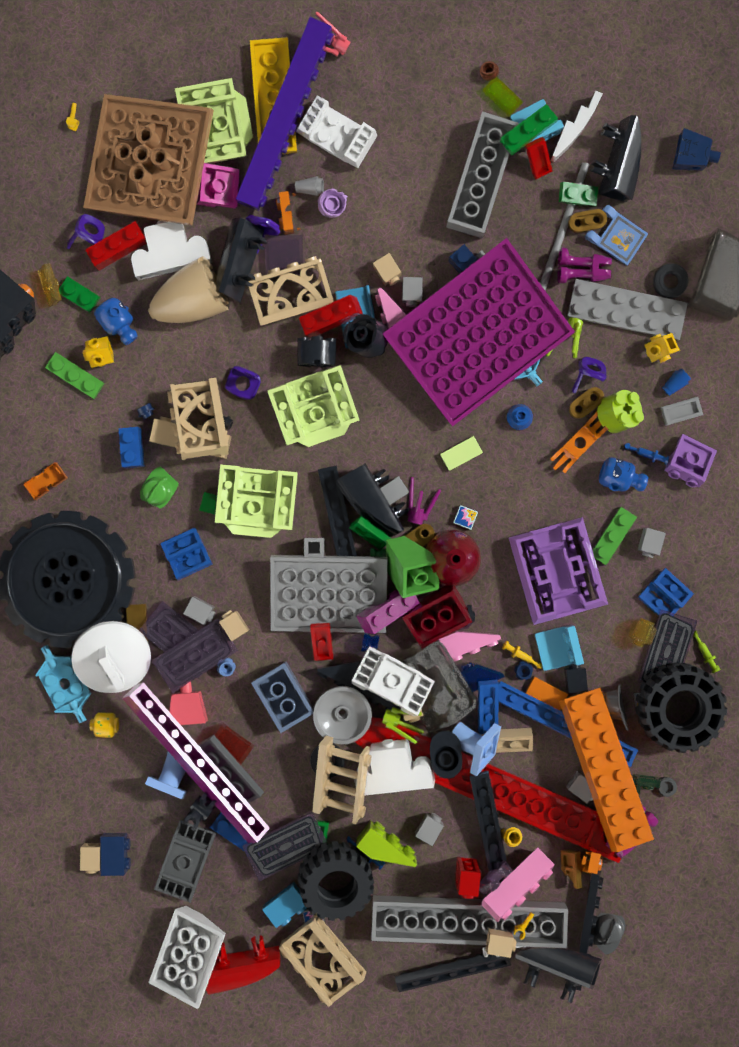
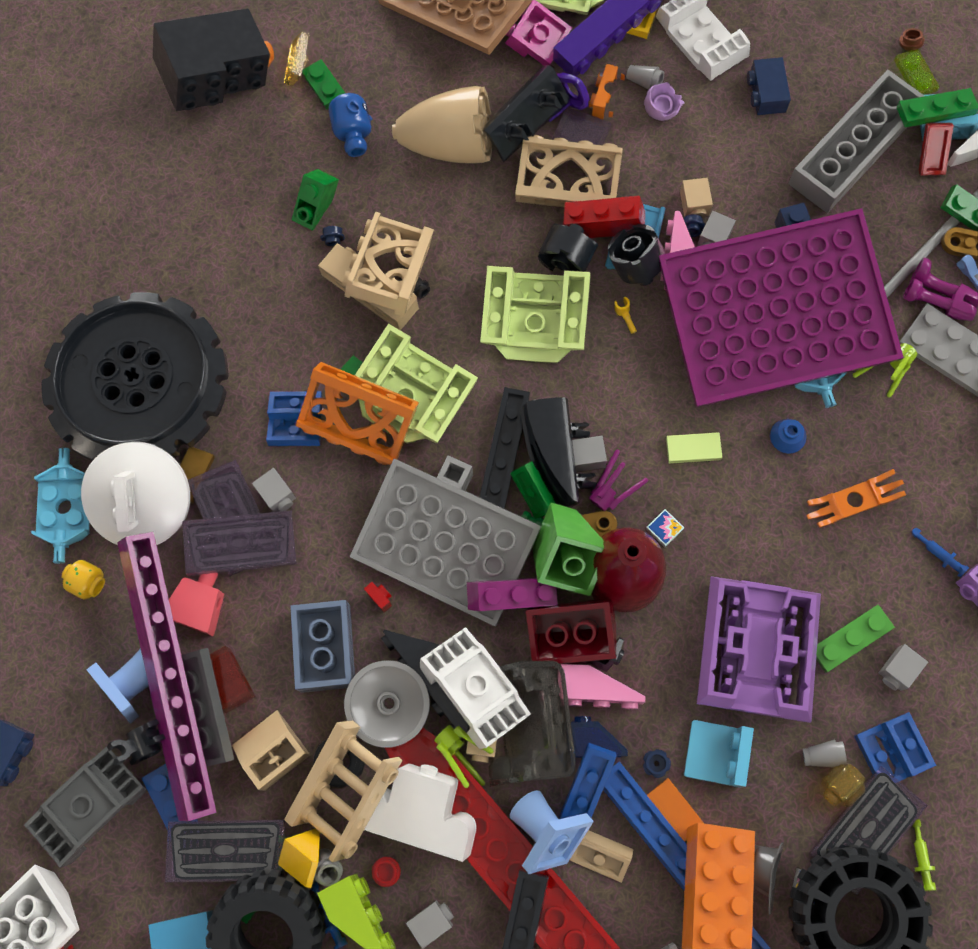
camera: 30 degrees right, 15 degrees down
(50, 476) = (164, 264): orange piece -> none
(74, 375) = (272, 165): bright green plate -> none
(82, 233) = (360, 14): dark purple piece -> none
(98, 352) = (312, 148): yellow brick -> none
(116, 246) = (393, 48): red brick -> none
(119, 389) = (314, 198): none -> green slope
(131, 447) = (294, 266): blue brick -> none
(158, 488) = (301, 329): bright green piece -> none
(167, 250) = (447, 68): white brick -> none
(220, 552) = (341, 433): none -> orange fence
(226, 671) = (266, 582): medium blue plate -> none
(233, 625) = (307, 528): tan brick -> none
(237, 372) = (473, 242): dark purple piece -> none
(281, 775) = (269, 751): none -> tan slope
(302, 647) = (379, 596): none -> red plate
(321, 641) = (407, 598): red plate -> none
(334, 828) = (301, 856): none -> yellow slope
(352, 830) = (327, 872): none -> light grey cone
(371, 641) = (474, 628): clear blue wheel -> none
(374, 377) = (624, 312): none -> yellow hand
(388, 811) = (386, 871): none -> red plate
(394, 290) = (694, 224): none -> dark blue plate
(402, 156) = (769, 86): none -> dark blue piece
(446, 754) = (500, 823): black piece -> none
(520, 654) = (662, 740): yellow piece -> none
(575, 679) = (724, 806): black brick -> none
(585, 370) = (905, 410): dark purple piece -> none
(586, 403) = (881, 454): pearl gold plate -> none
(620, 411) = (925, 479): lime brick -> none
(620, 475) = (895, 562): blue piece -> none
(624, 618) = (825, 754): none -> light grey cone

